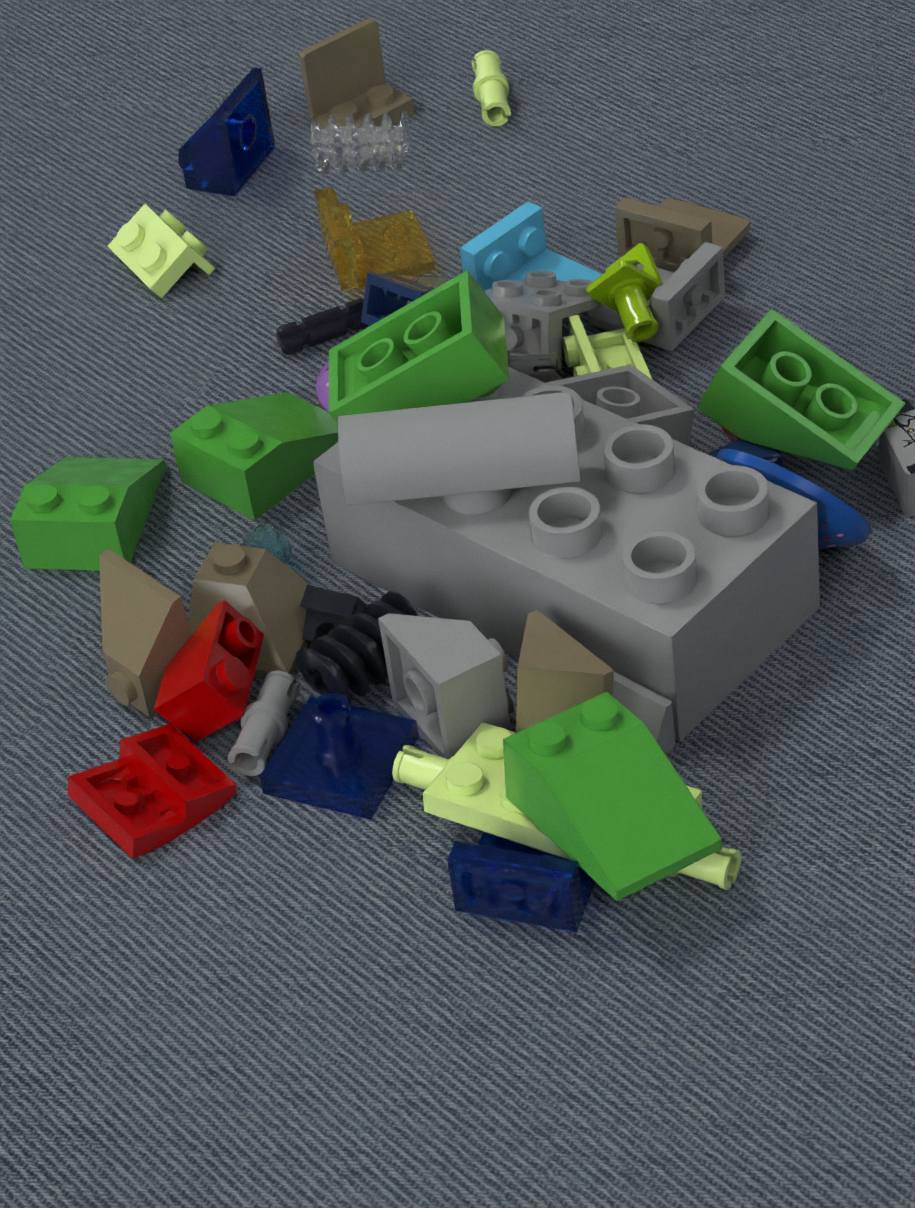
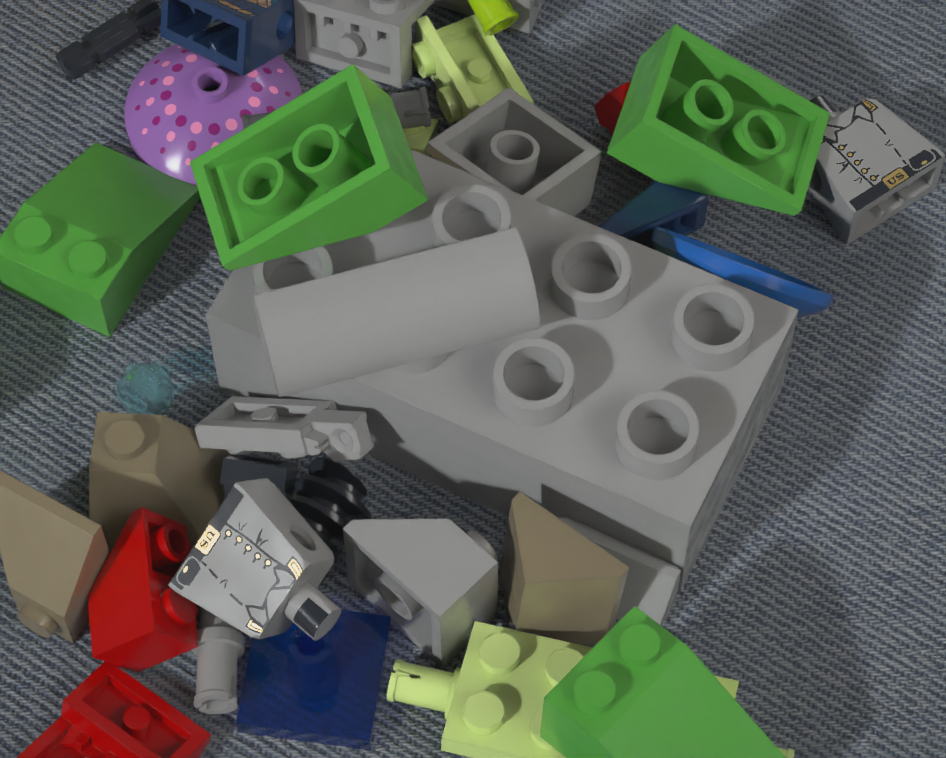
camera: 20 degrees left, 20 degrees up
(302, 639) = (260, 566): none -> light grey torso
(397, 568) = (285, 427): none -> light grey hinge

